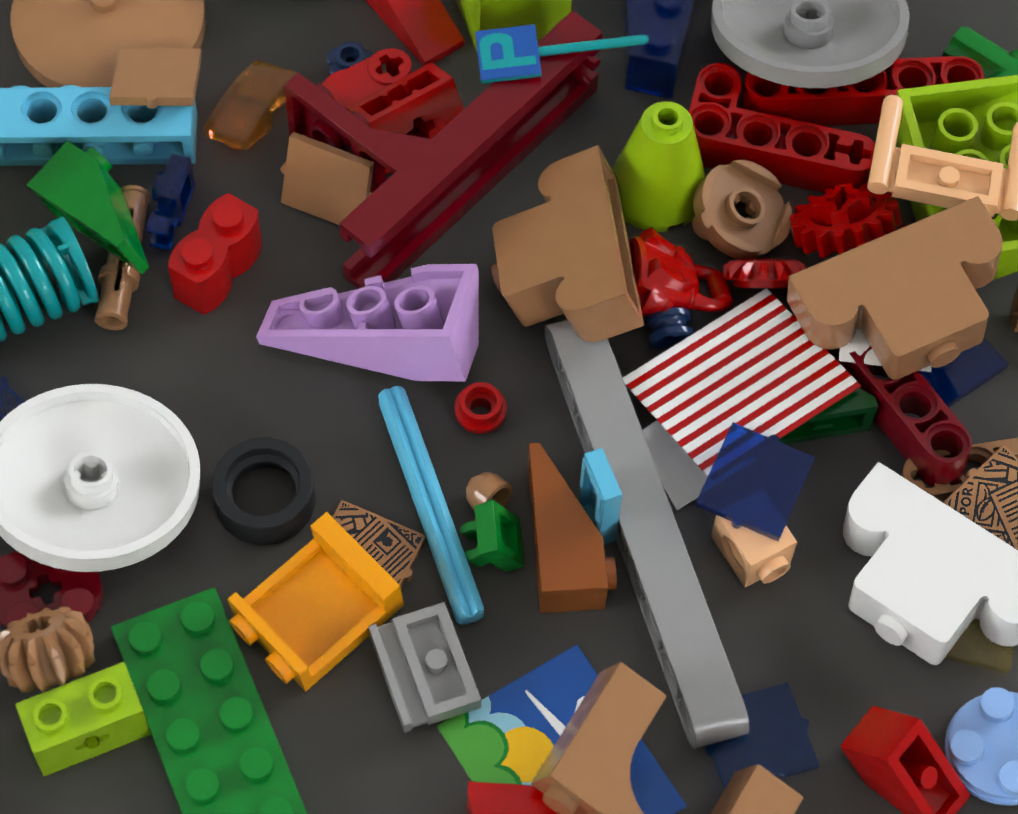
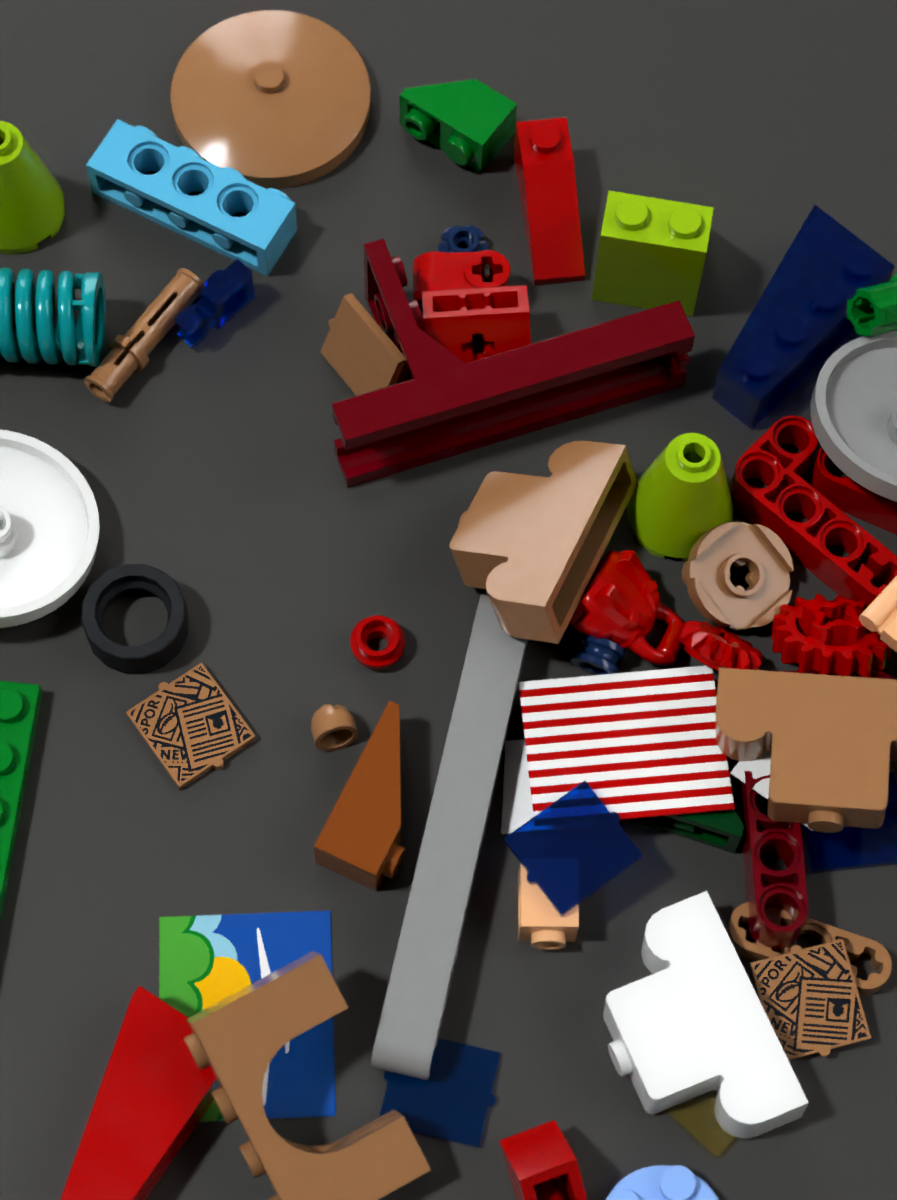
camera: 30 degrees right, 5 degrees up
(90, 200) = (140, 271): green slope -> none
(156, 77) = (267, 177): medium nougat piece -> none
(216, 253) = (216, 376): red brick -> none
(247, 105) = (337, 246): clear orange slope -> none
(316, 605) = (113, 751): light orange panel -> none
(402, 327) = (349, 527): lavender wedge -> none
(425, 667) = (176, 858): light grey plate -> none
(431, 506) = (276, 710): medium azure axle -> none
(497, 537) = (313, 772): green tile -> none
(515, 54) = (595, 315): piece -> none
(600, 494) = (420, 784): medium azure tile -> none

